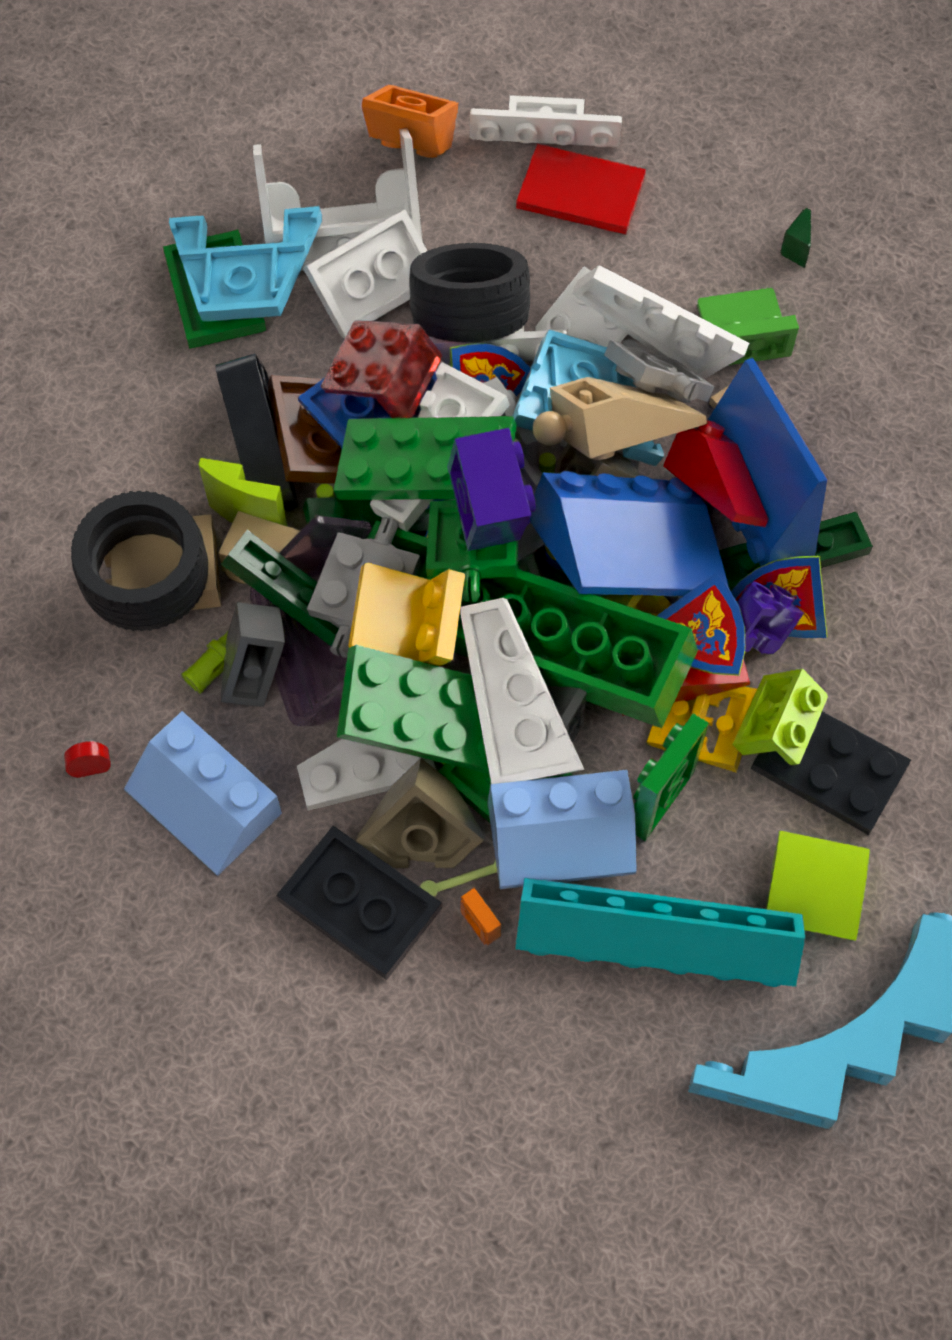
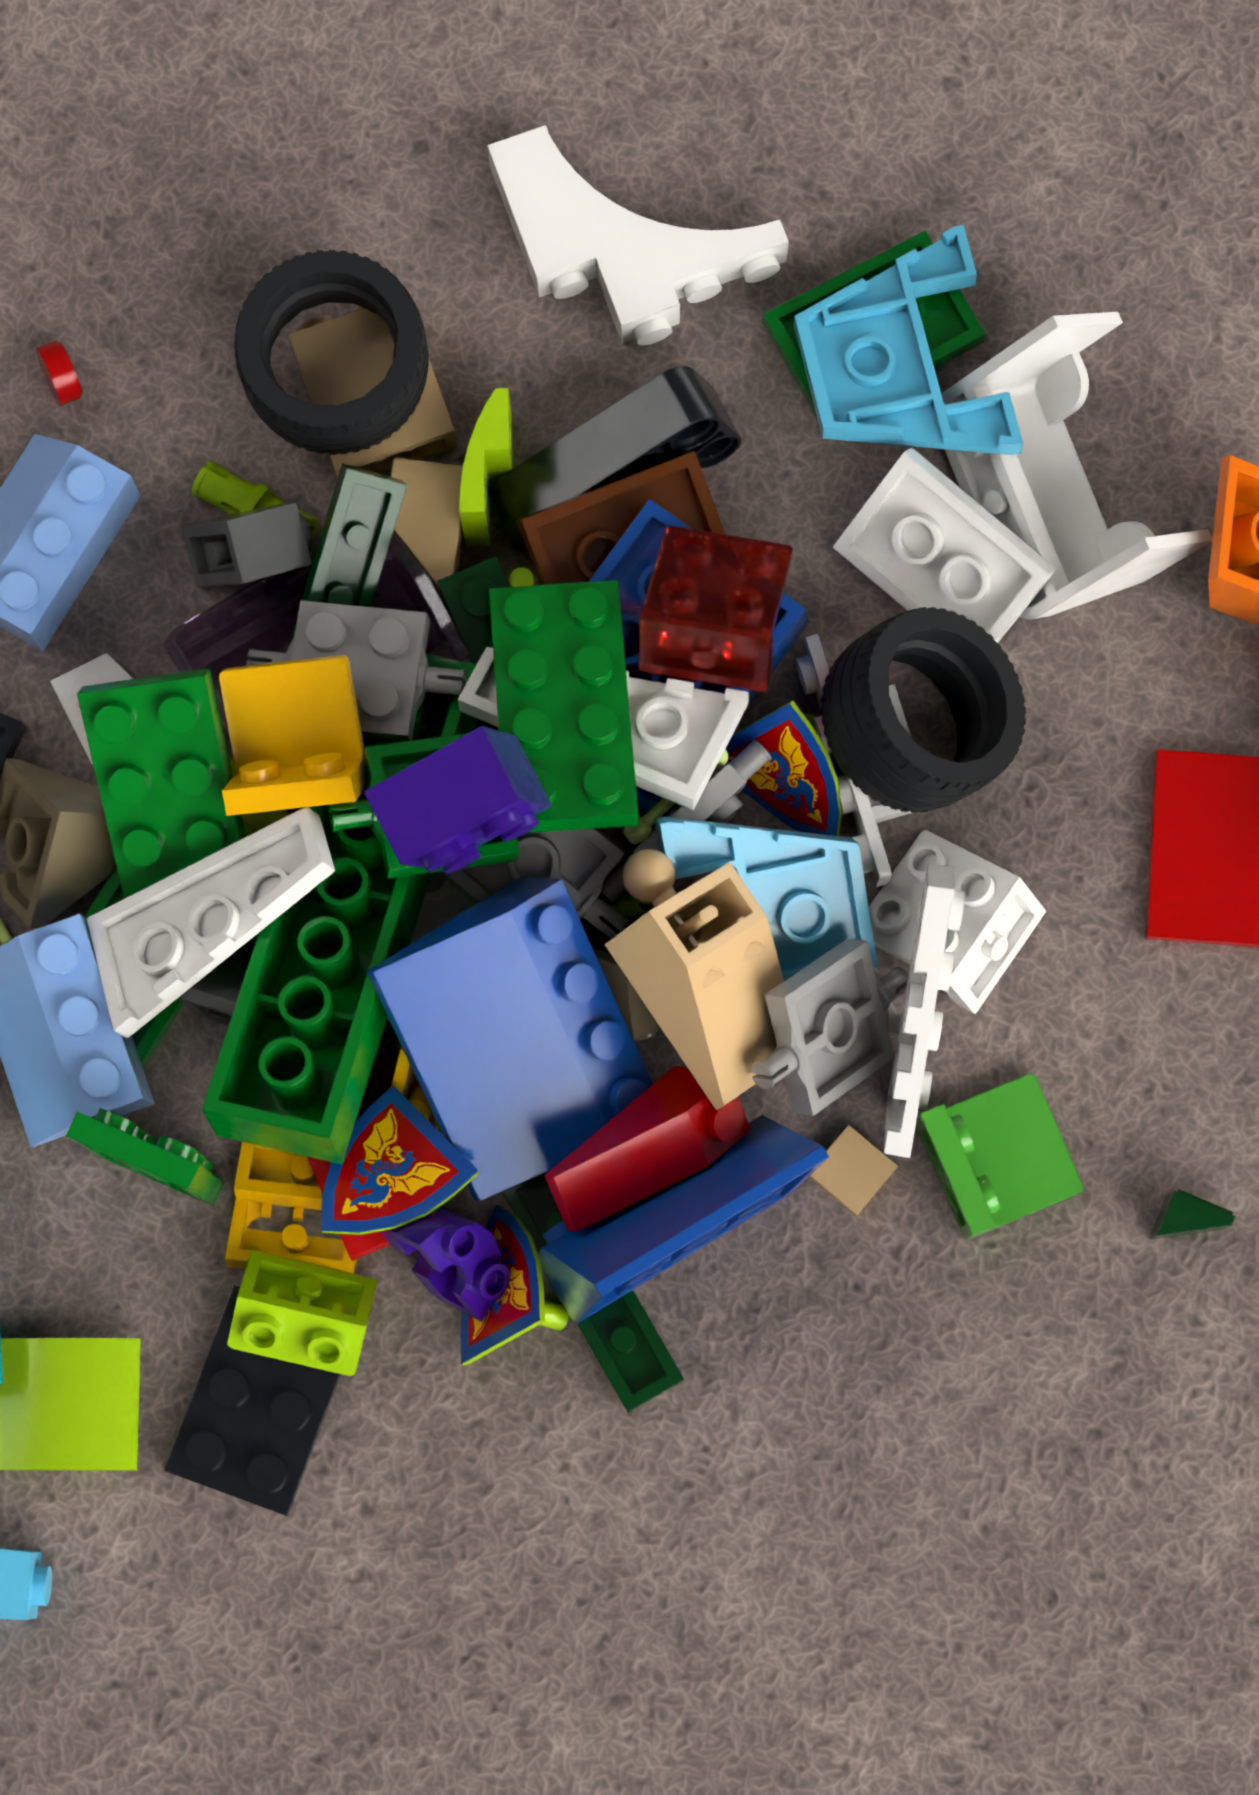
camera: 80 degrees right, 15 degrees up
(103, 427) = (641, 264): none -> white arch

